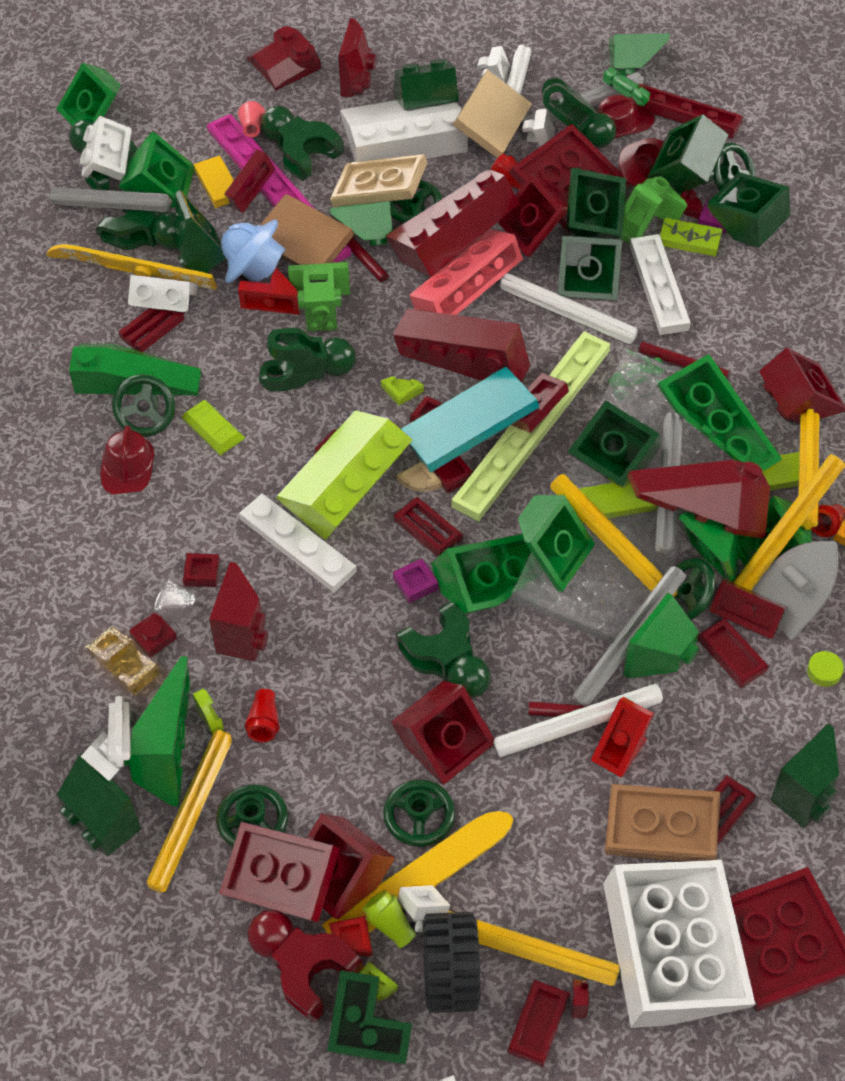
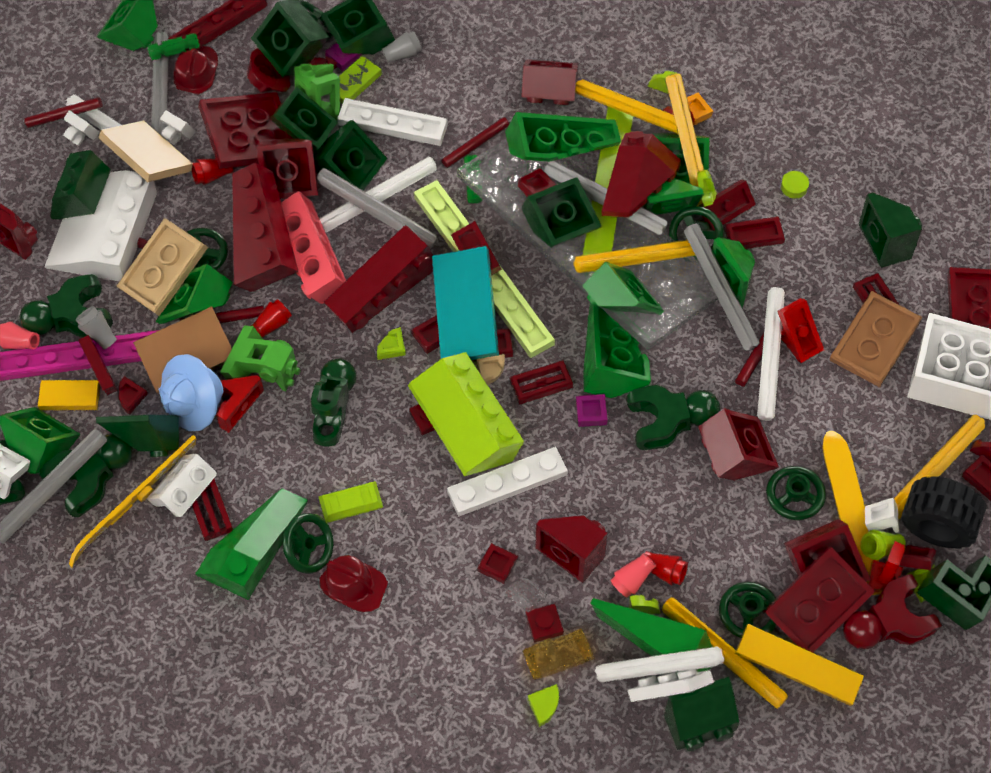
camera: 65 degrees left, 5 degrees up
(63, 668) = (544, 704): none -> lime tile
(201, 885) = (799, 664): none -> yellow tile
(233, 686) = (631, 576): none -> coral cone
(246, 216) = (130, 394): none -> dark red tile
(283, 160) = (95, 325): none -> light grey cone
(362, 926) = (891, 563): none -> red tile
(375, 284) = (271, 318): none -> red cone
(391, 963) = (918, 557): none -> dark red tile
(510, 52) = (60, 113): none -> dark red bar
(543, 309) = (372, 205): none -> light grey axle
(575, 110) = (182, 91): dark green piece -> none
(648, 413) = (535, 182): none -> dark red plate
(745, 572) = (706, 183): none -> lime tile
(757, 256) = (403, 47): none -> light grey cone
(801, 582) = (729, 157): light grey shield -> none

